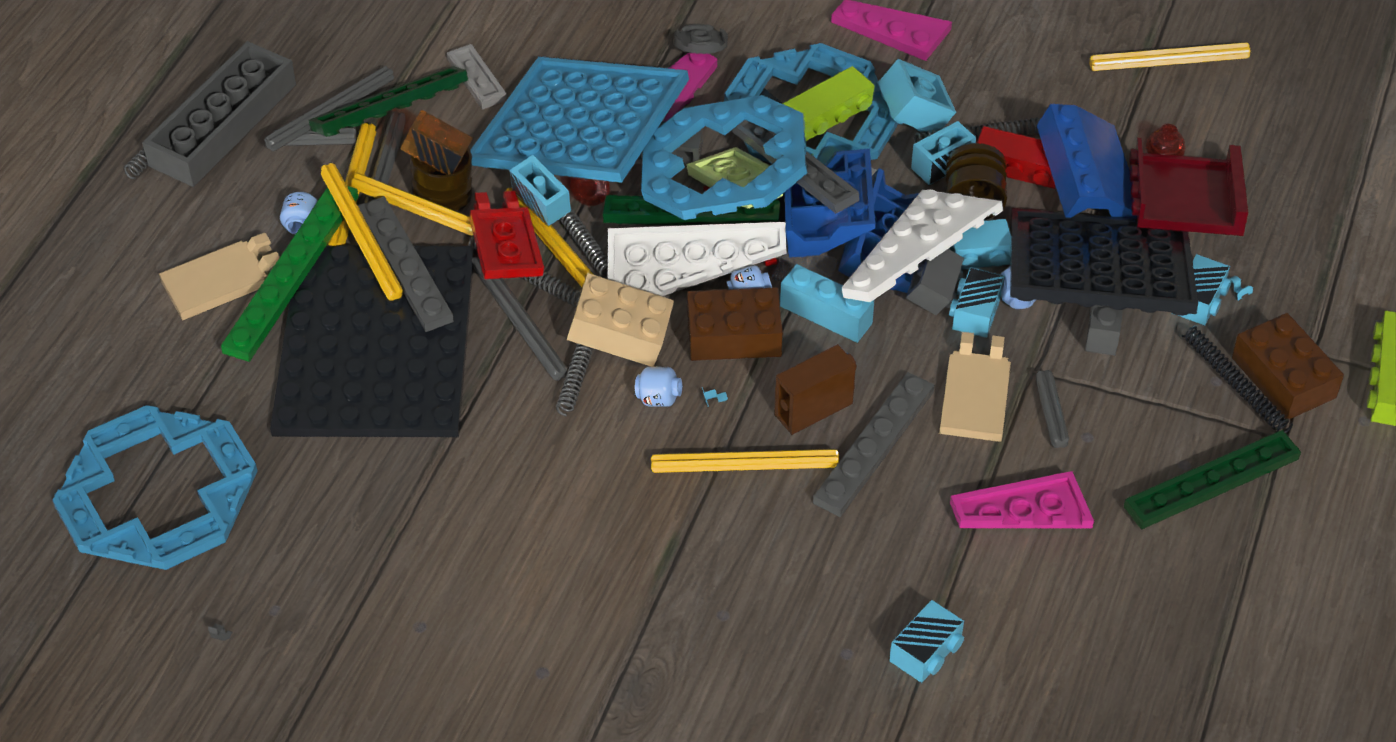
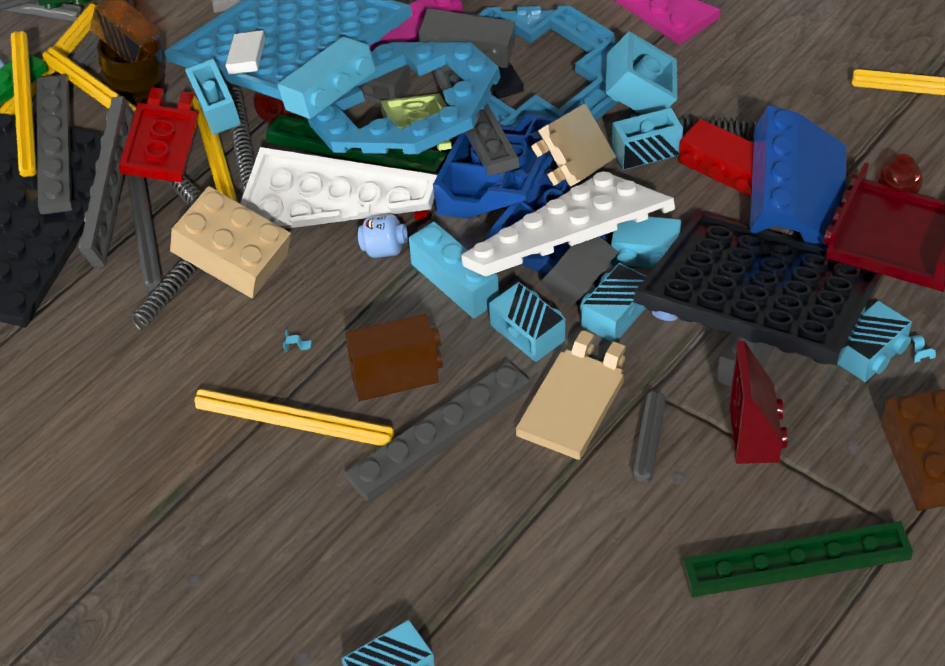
camera: 20 degrees right, 0 degrees up
(477, 298) = (106, 185): none -> dark grey plate
(556, 142) = (245, 52): none -> white tile
(650, 152) = (326, 77): none -> medium azure brick
(658, 386) = (239, 319): light blue head -> none
(734, 324) = (347, 271): reddish brown brick -> none
(745, 83) = (489, 35): none -> dark grey brick
(833, 101) = (543, 67): lime brick -> none
(892, 171) = (575, 145): none -> tan tile
(909, 334) = (527, 321): none -> medium azure brick
(977, 172) = (671, 167): dark brown wheel -> none
(1031, 503) = (577, 538): dark pink wing -> none
(1133, 369) = (755, 411): none -> dark red slope
(1272, 414) = (865, 449): black piece -> none

